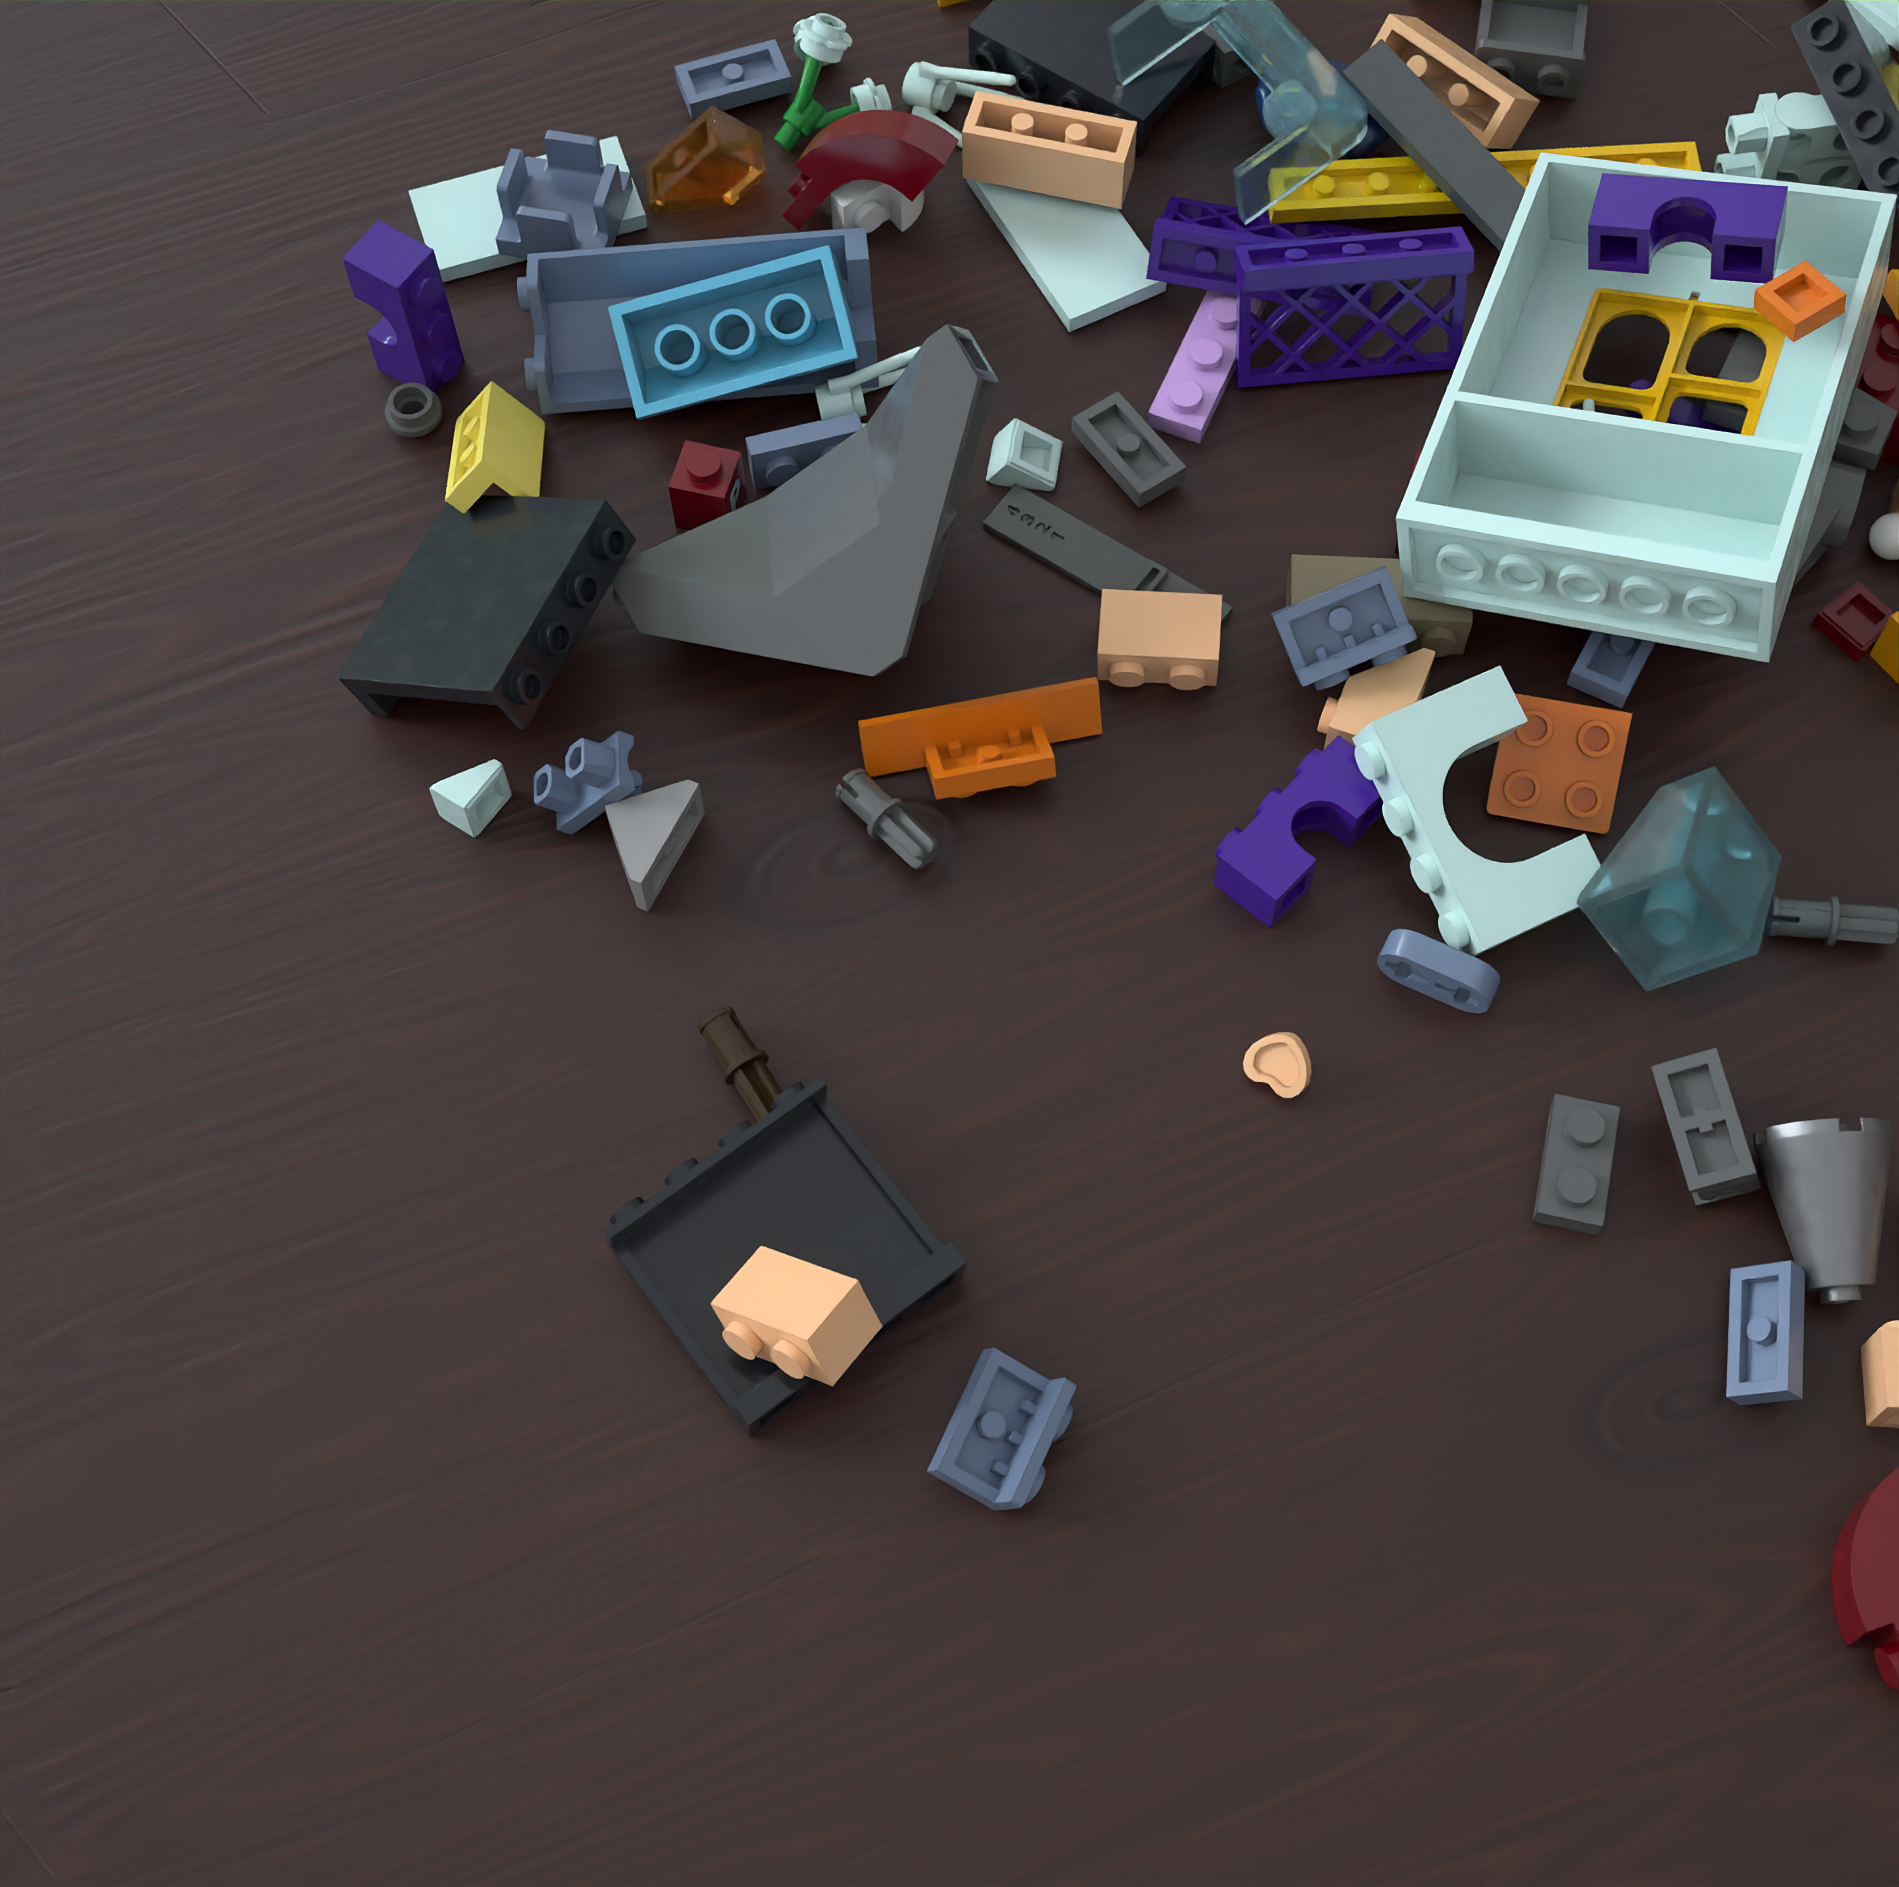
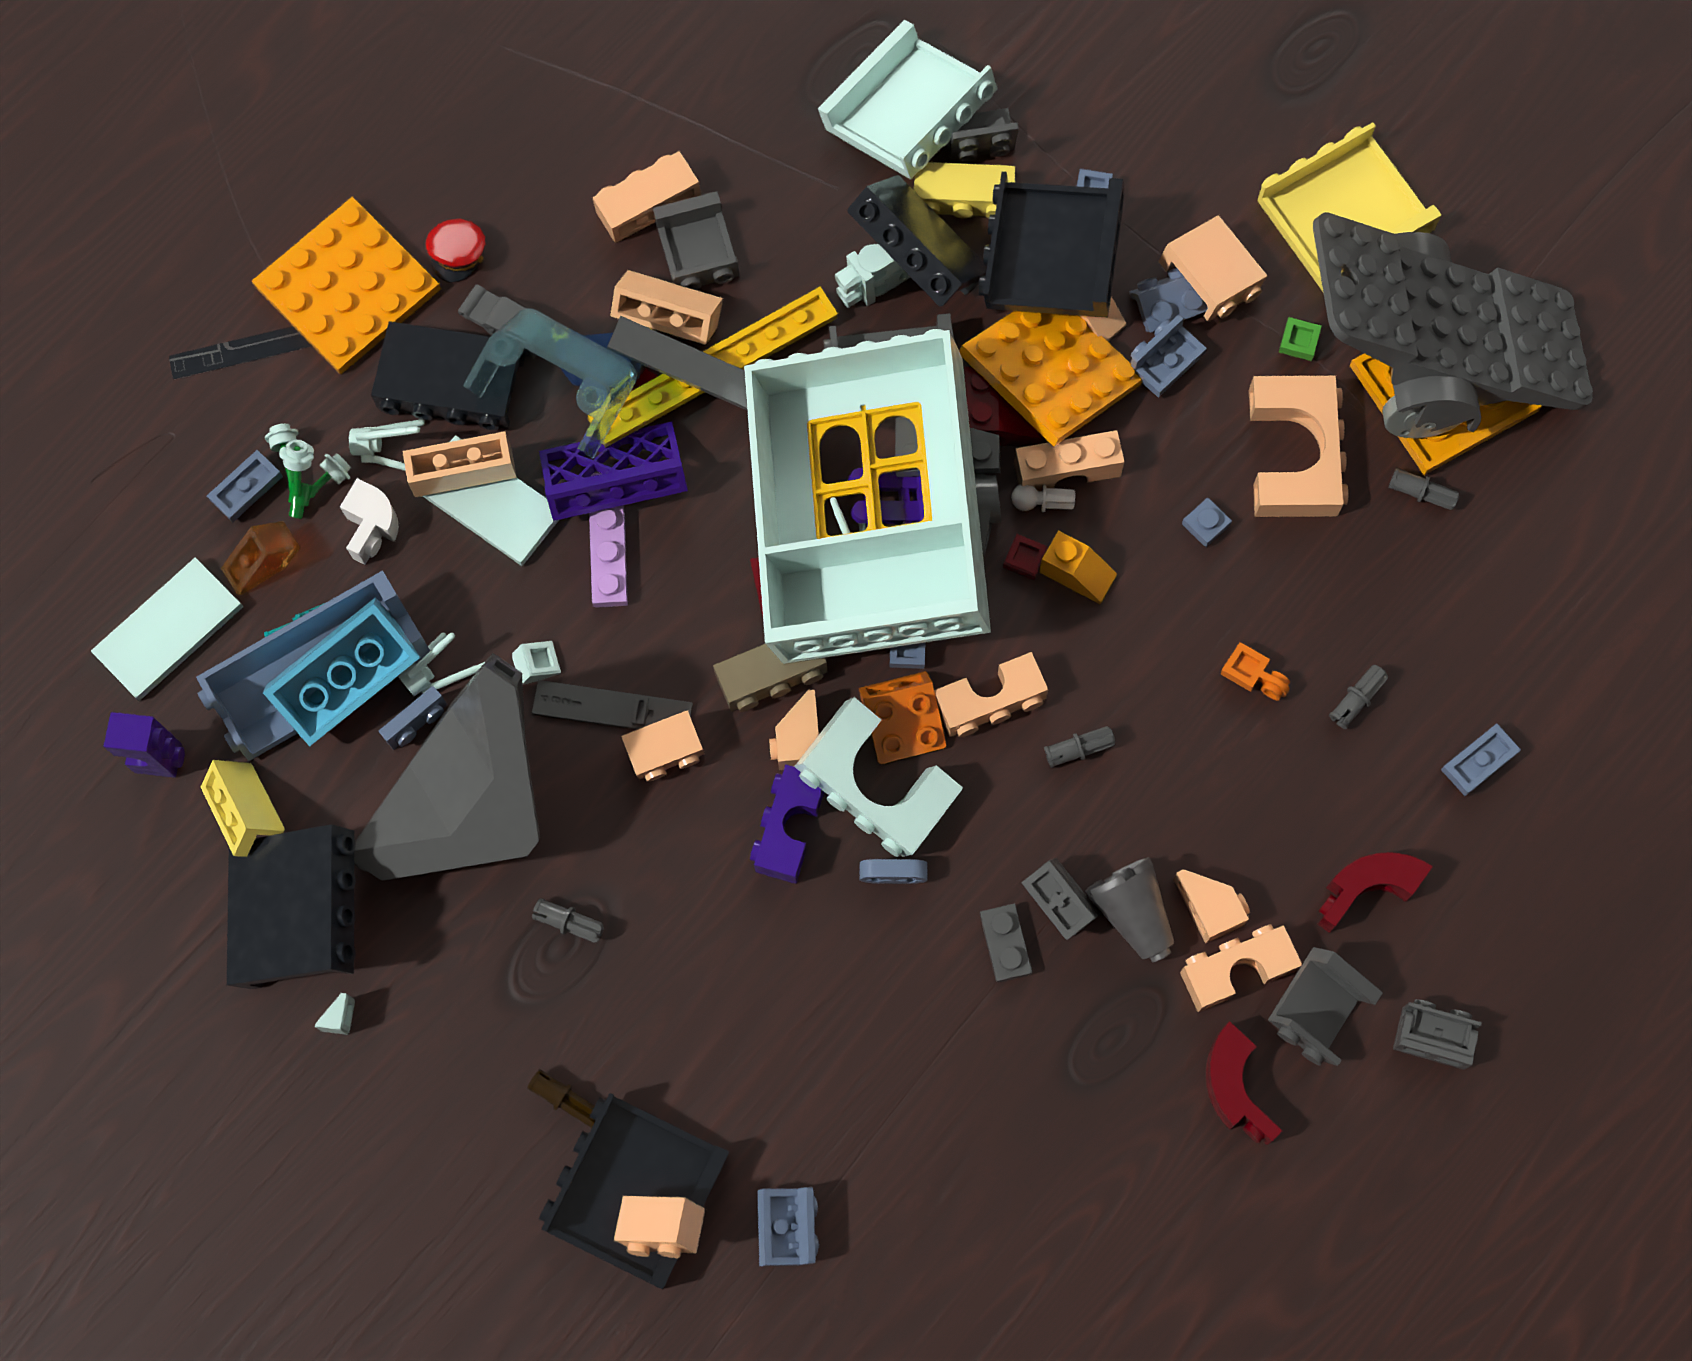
camera: 25 degrees left, 10 degrees up
(411, 399) = (166, 786): dark grey plate -> none
(561, 199) = (191, 624): sand blue panel -> none
(592, 778) = (399, 980): sand blue hips -> none
(653, 834) = (446, 992): light grey slope -> none
(706, 484) = (370, 769): dark red brick -> none
(868, 146) = (360, 516): dark red arch -> none
(984, 739) = (598, 852): orange bracket -> none
(1128, 449) = (591, 632): dark grey plate -> none
(1280, 1062) = (835, 960): light nougat piece -> none
(1344, 629) = (762, 703): sand blue bracket -> none
(1360, 263) = (668, 479): dark purple fence -> none
(1685, 883) = (998, 767): clear light blue slope -> none
(1732, 220) = (817, 401): dark purple arch -> none
(1766, 1333) = (1132, 992): sand blue plate -> none
(1773, 781) = (965, 710): none -> light nougat arch
(1799, 301) = (924, 428): orange plate -> none

